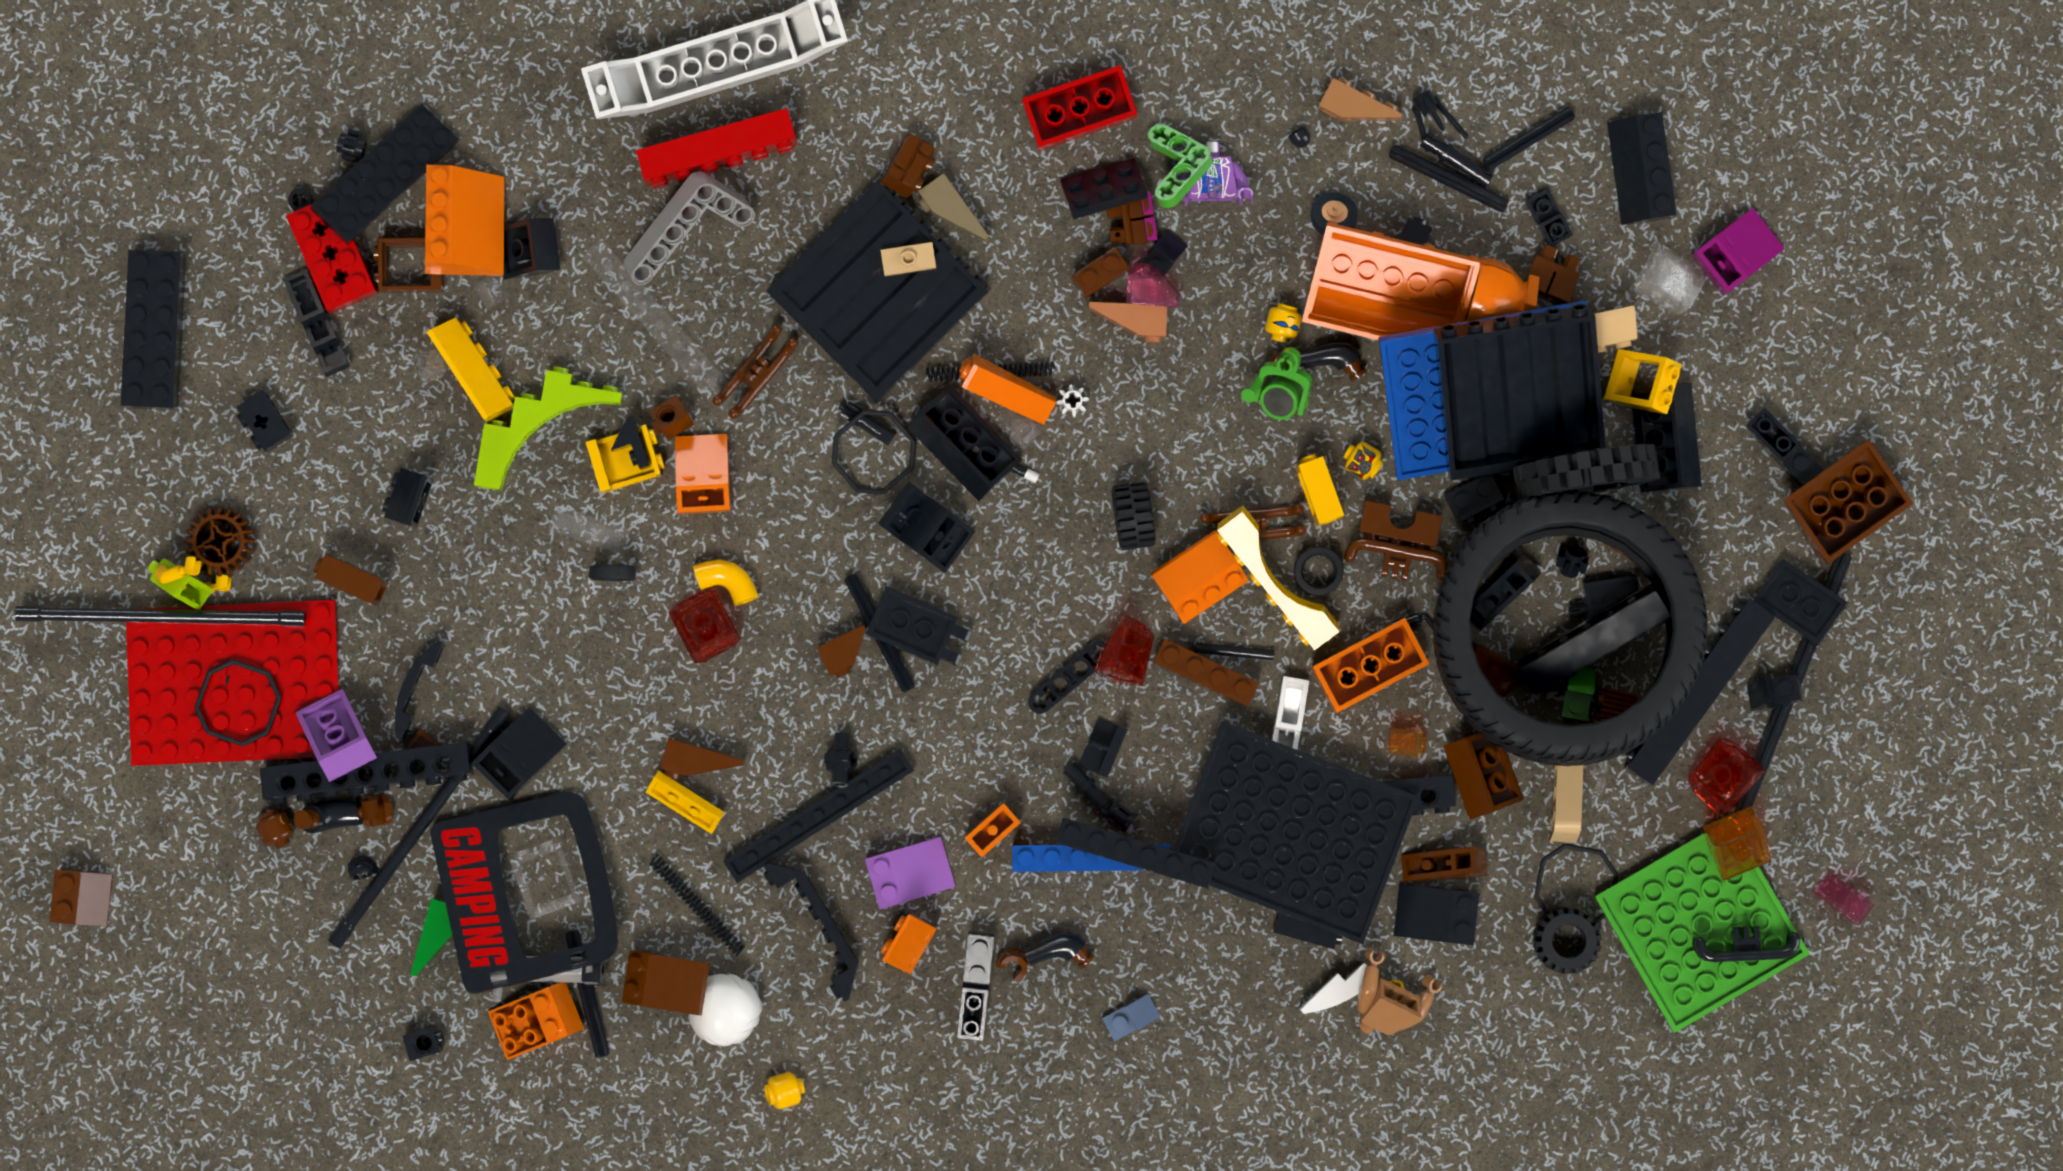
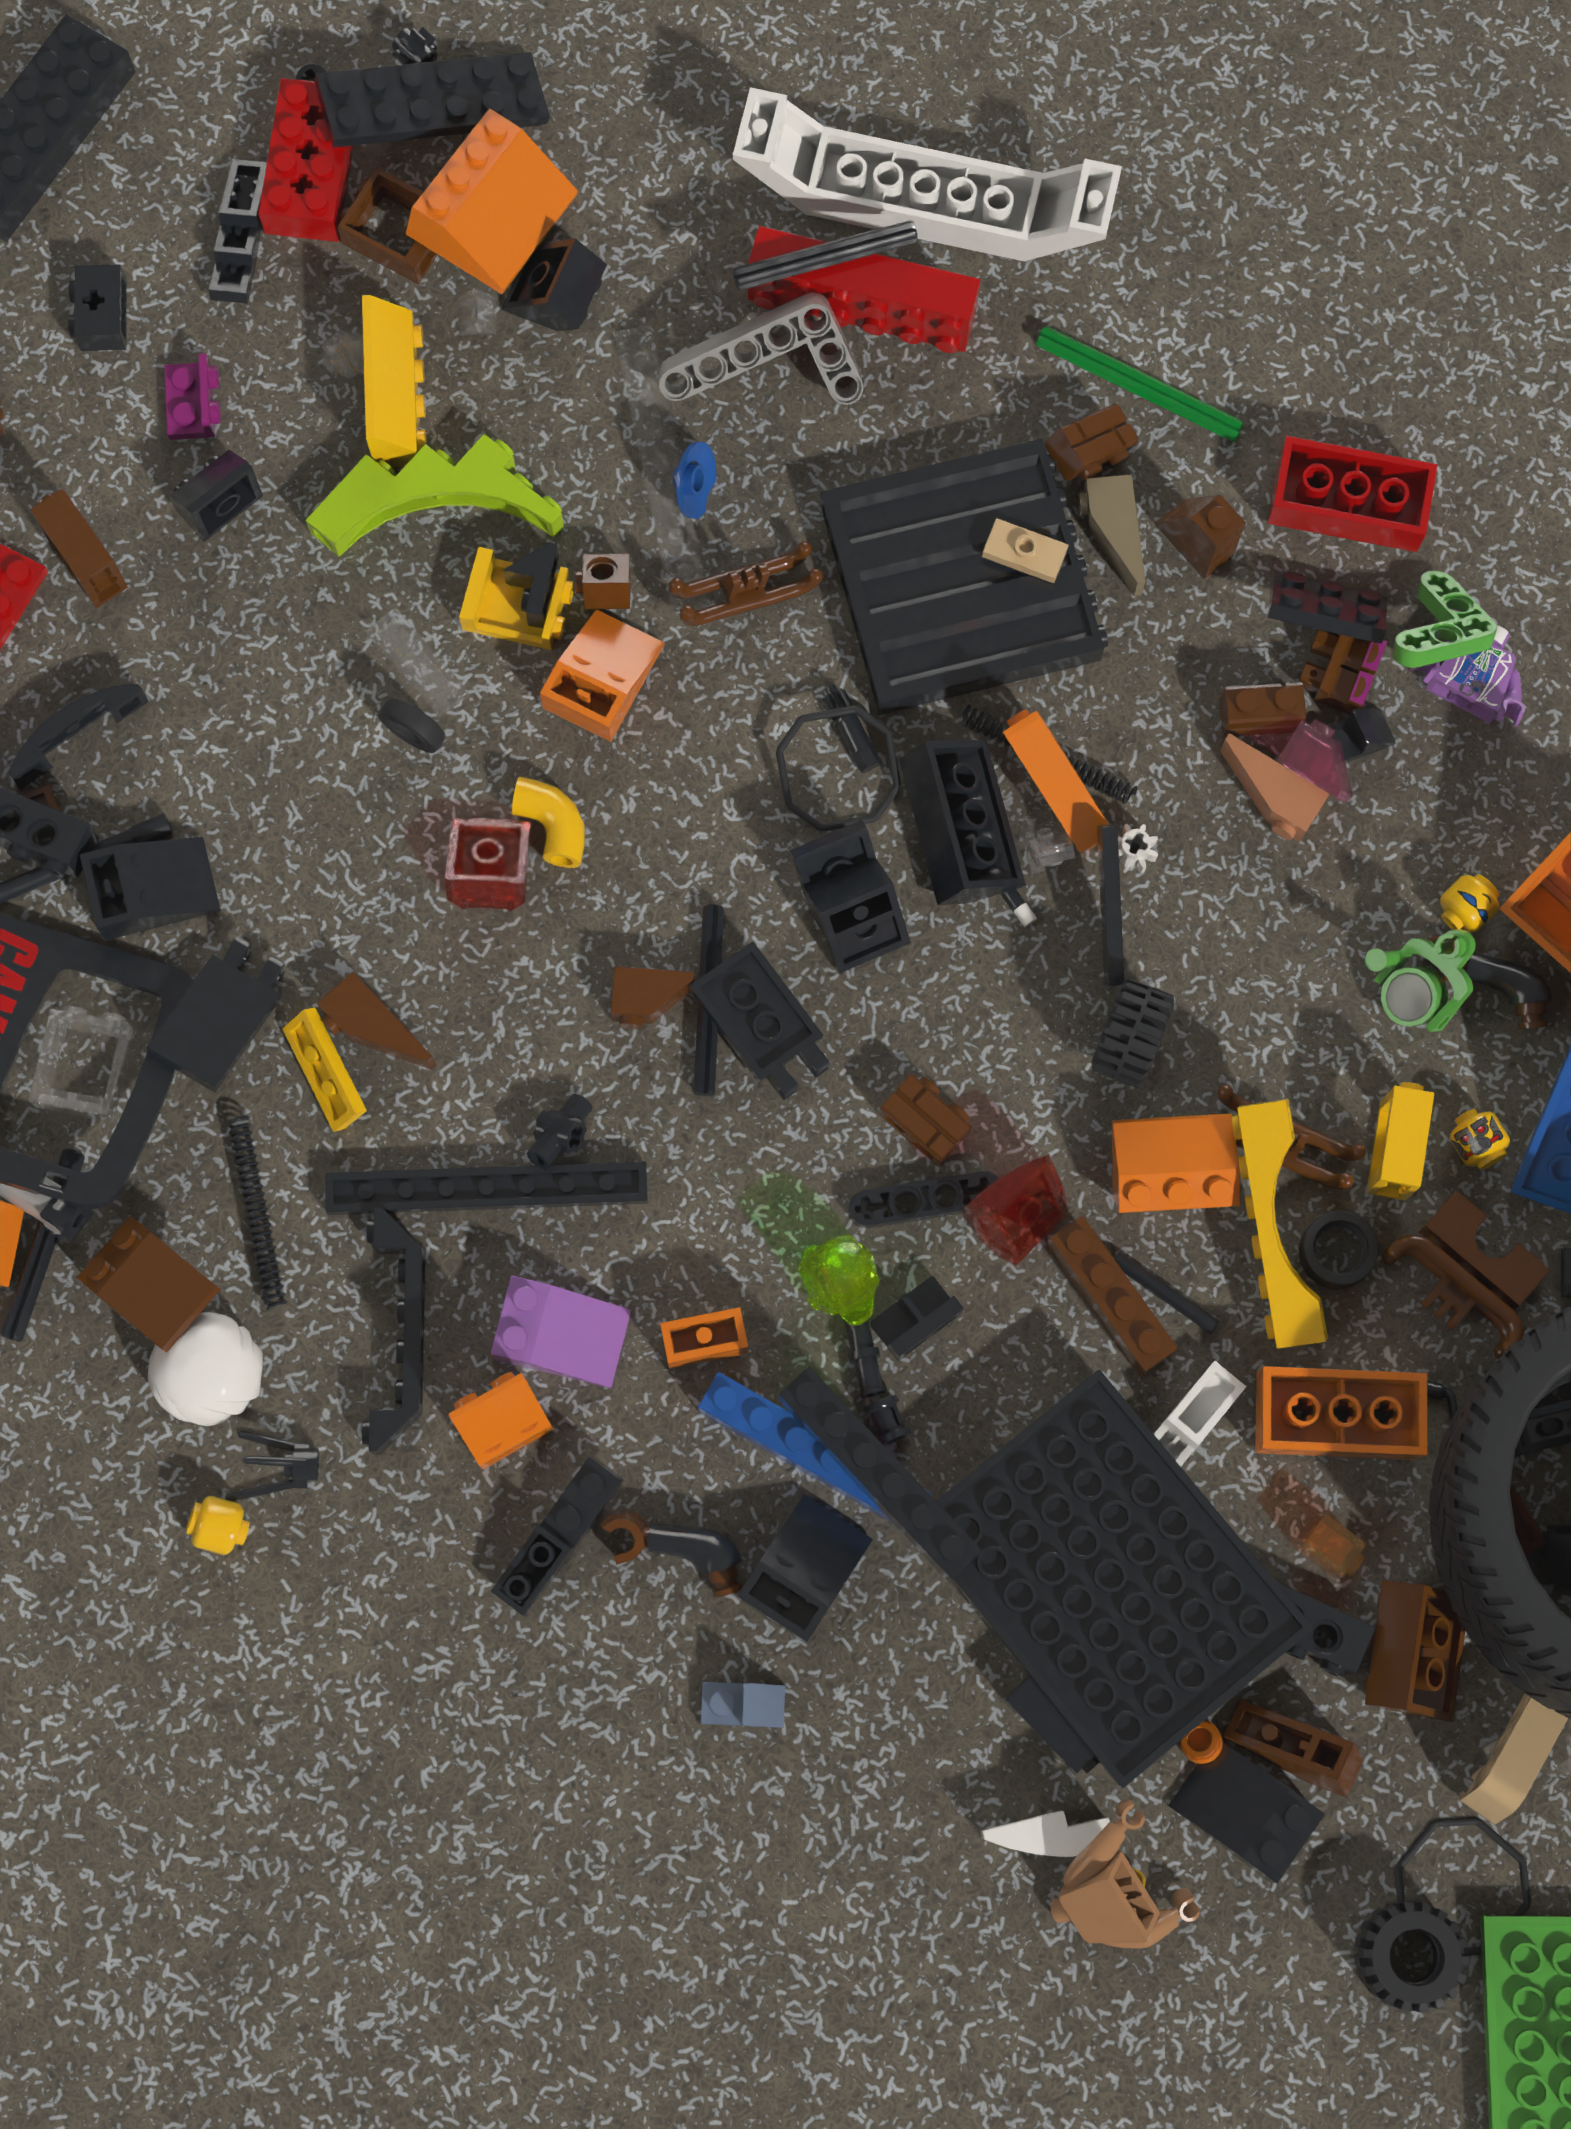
camera: 35 degrees right, 10 degrees down
(354, 446) = (190, 399): none -> magenta bracket
(606, 808) = (217, 1017): none -> black tile
(686, 325) = (694, 479): none -> blue dish
(687, 148) = (825, 255): none -> black axle
(807, 1031) = (300, 1465): none -> black plant
(913, 106) = (1139, 383): none -> green axle
(1002, 184) = (1203, 531): none -> reddish brown slope
(1044, 631) = (926, 1118): none -> reddish brown brick
(1049, 752) = (840, 1278): none -> clear neon green piece
(1078, 446) = (1110, 904): none -> black tile
(1122, 924) = (804, 1569): none -> black slope
(1393, 892) = (1202, 1743): none -> orange tile

